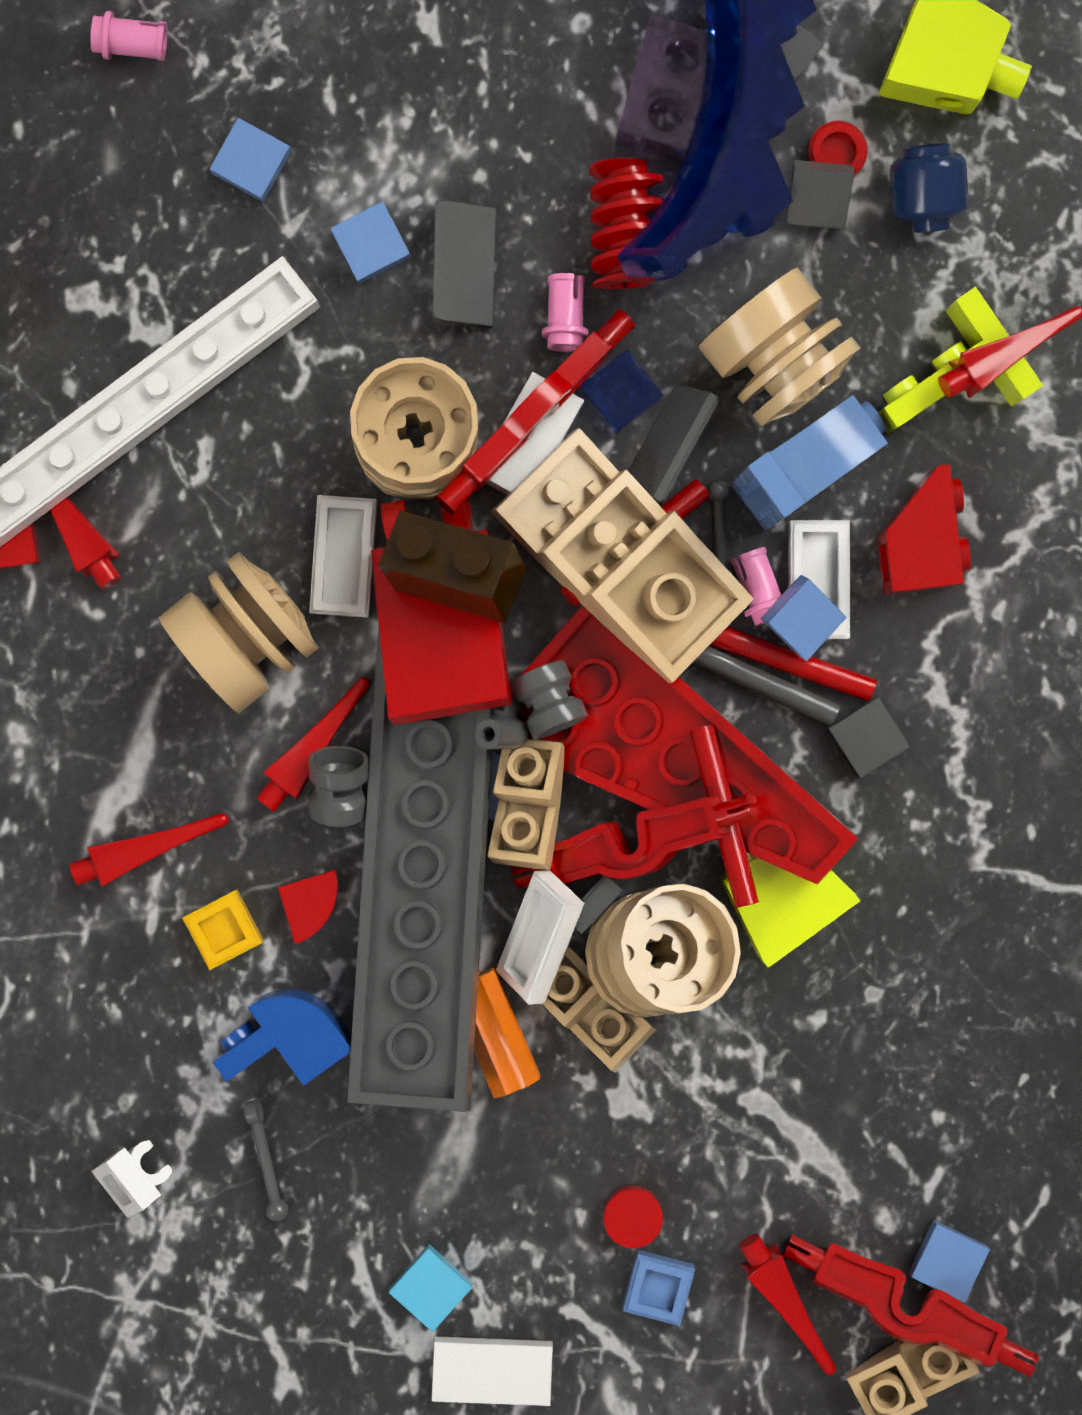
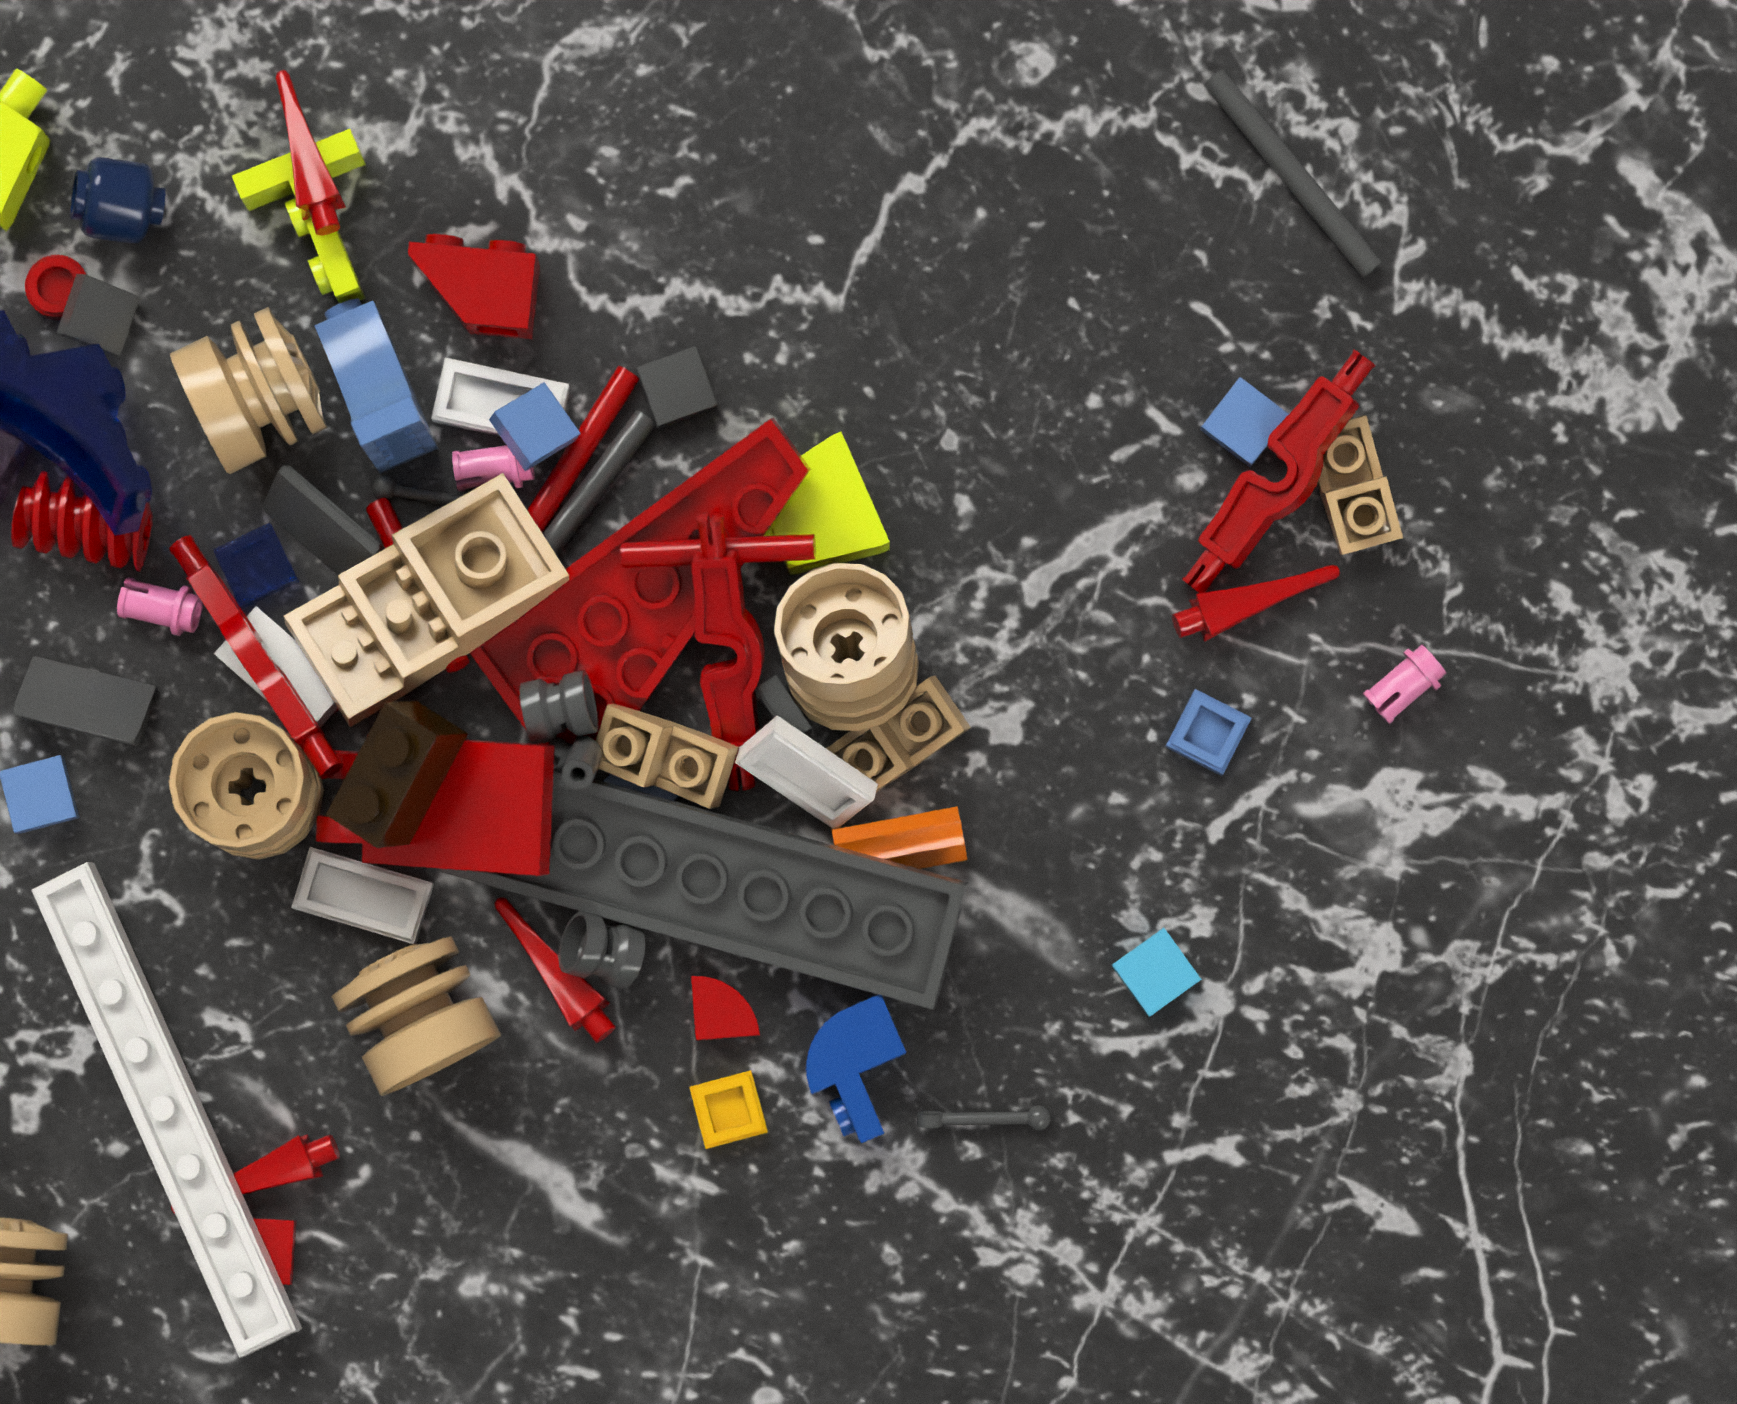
camera: 80 degrees left, 5 degrees down
(119, 857) = (626, 1199): red piece -> none
(127, 1182) = (970, 1266): white tile -> none
(492, 1371) = (1258, 926): white tile -> none
(632, 1216) = (1126, 742): red tile -> none

